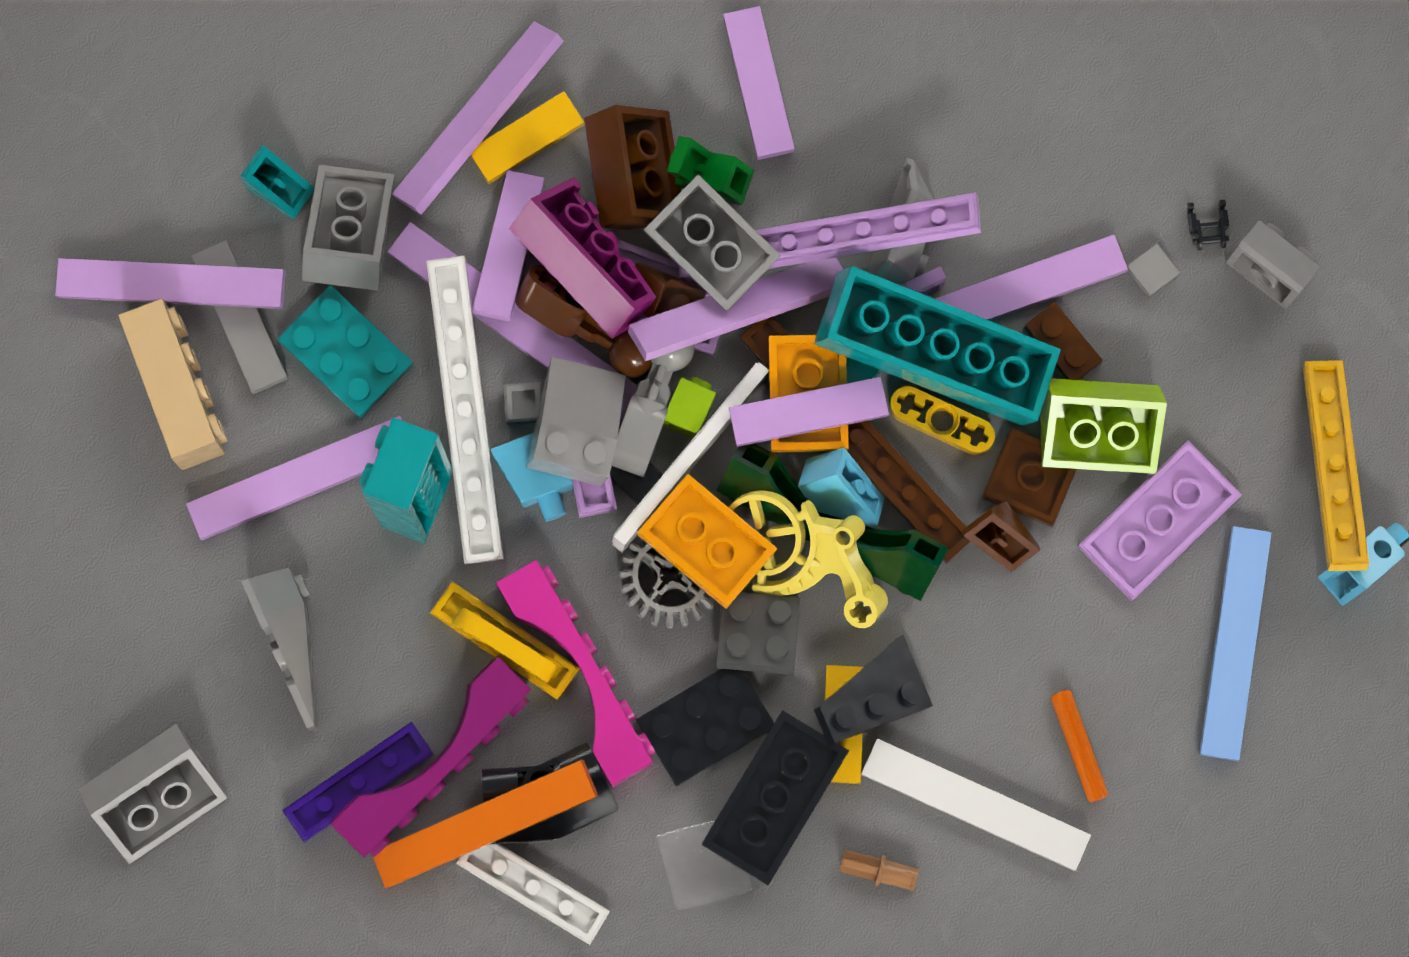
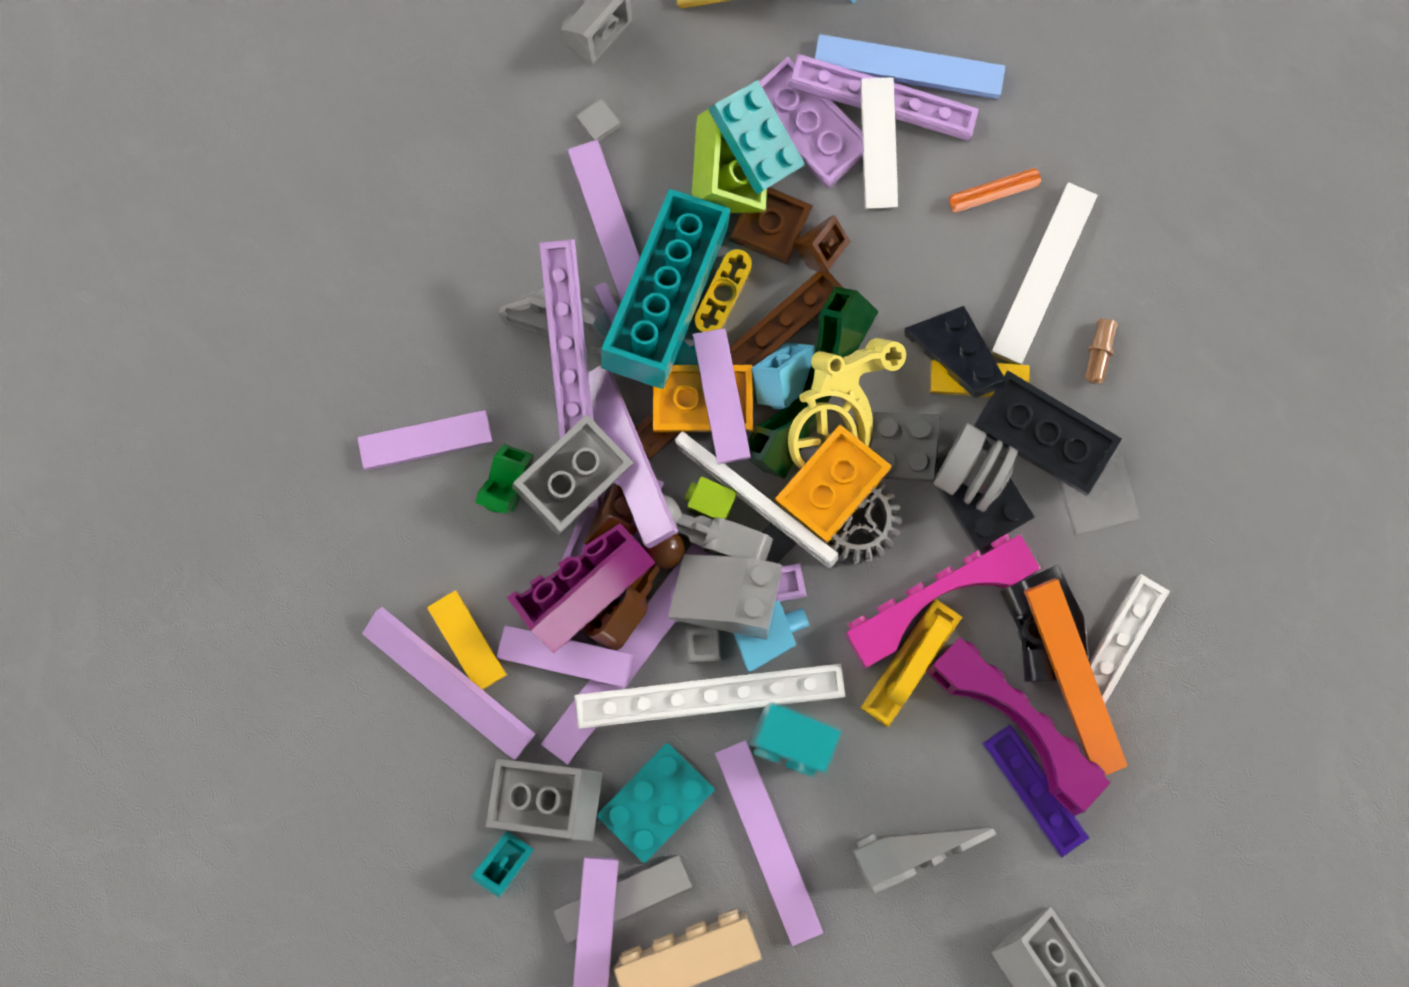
camera: 85 degrees left, 0 degrees up
(630, 164) = (497, 548): reddish brown slope -> none
(727, 703) = (976, 468): none -> light grey wheel
(1057, 330) = (649, 197): reddish brown plate -> none
(1130, 453) = (756, 136): none -> plate
(1130, 602) = (879, 143): none -> white tile
(1192, 610) = (910, 104): none -> lavender tile
(1195, 227) = (561, 85): black piece -> none

